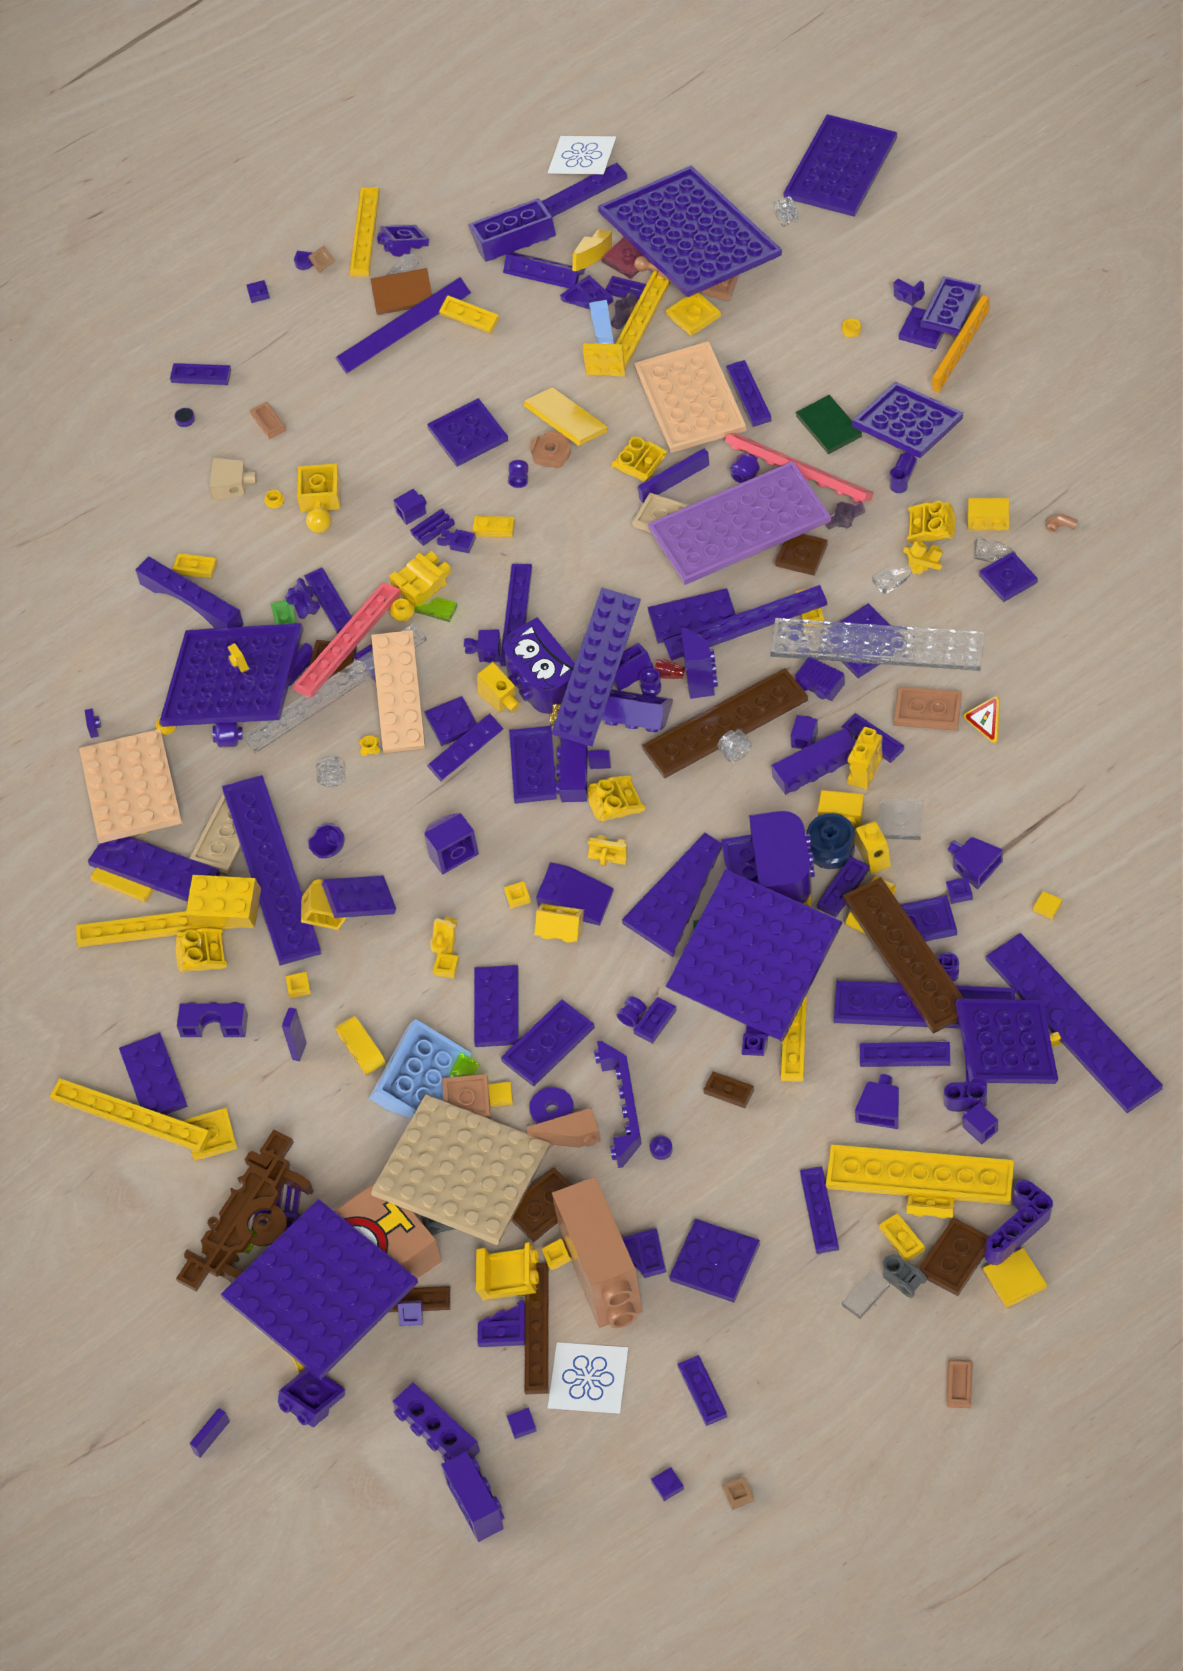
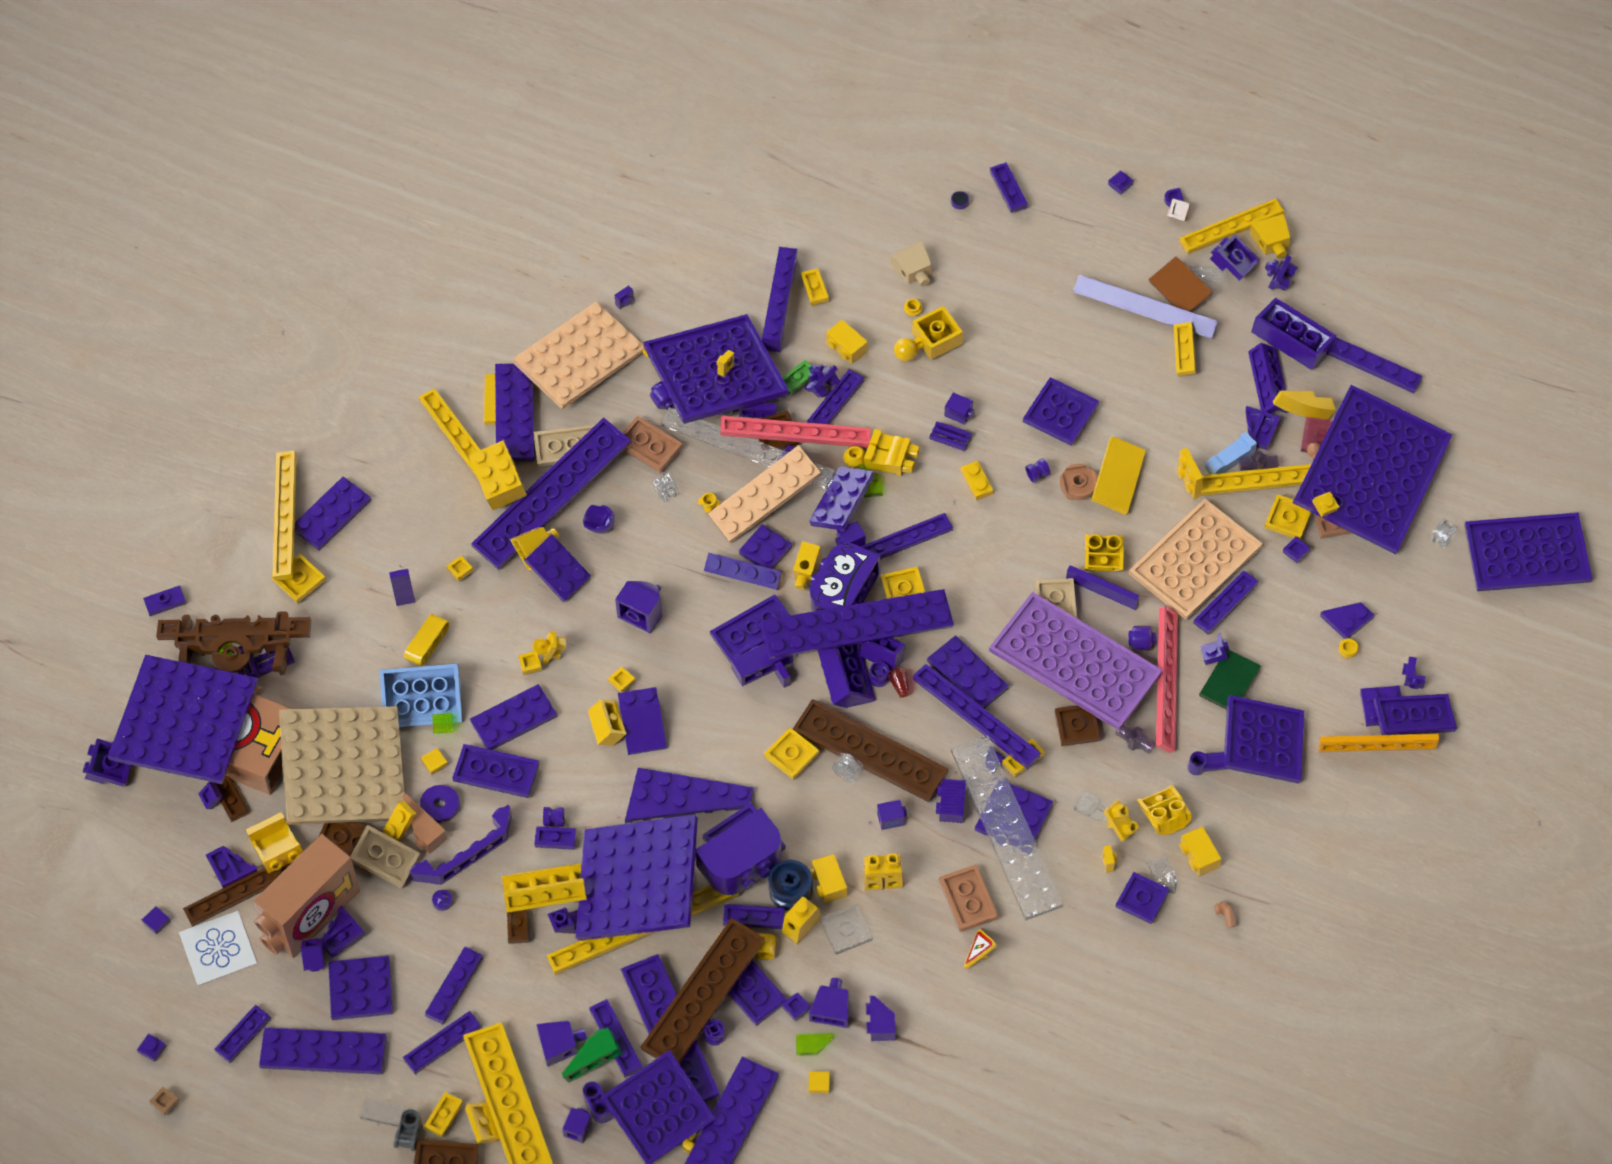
camera: 55 degrees right, 5 degrees up
(149, 1272) = (164, 600): none -> dark purple plate
(195, 1016) = (393, 513): dark purple arch -> none
(200, 950) = (456, 485): yellow slope -> none
(209, 1432) = (48, 711): dark purple tile -> none
(268, 420) = (991, 260): nougat tile -> none
(274, 564) = (846, 342): none -> yellow brick
(277, 765) = (651, 444): none -> nougat plate
(398, 205) = (1271, 235): none -> yellow torso
(415, 1400) = (117, 889): dark purple brick -> none
(440, 215) = (1278, 271): none -> dark purple hips
(446, 633) = (841, 498): none -> dark purple plate
(458, 541) = (945, 462): dark purple plate -> none
(468, 1093) = (417, 738): nougat plate -> none
(473, 1495) = (71, 915): dark purple brick -> none
(555, 1146) = (399, 821): none -> yellow plate
(570, 625) = (902, 583): none -> yellow plate
(581, 155) = (1414, 344): white sticker -> none
(586, 1166) = (384, 856): none -> tan plate
(607, 851) = (694, 722): yellow hips -> none
(614, 798) = (750, 705): yellow slope -> none
(626, 285) = (1284, 439): dark purple tile -> none
(656, 1284) = (313, 954): none -> dark purple brick
(688, 787) = (791, 753): none -> yellow plate
(699, 665) = (902, 698): dark purple slope -> none
(707, 271) = (1325, 504): none -> yellow plate
(721, 1049) = (543, 887): none -> yellow fence
(730, 321) = (1296, 550): none -> dark purple plate
(762, 1175) = (453, 985): none -> dark purple plate
(765, 1323) = (322, 1051): none -> dark purple plate
(794, 419) = (1215, 651): none -> bracket
(813, 761) = (863, 834): dark purple brick -> none
(822, 316) = (1347, 619): none -> dark purple wing
(890, 747) = (917, 870): dark purple tile -> none
(914, 1070) = (595, 1052): none -> green slope
(954, 584) = (1109, 858): none -> yellow plate
(1003, 895) = (812, 1043): none -> clear neon green tile
(1014, 827) = (881, 1021): none -> dark purple slope

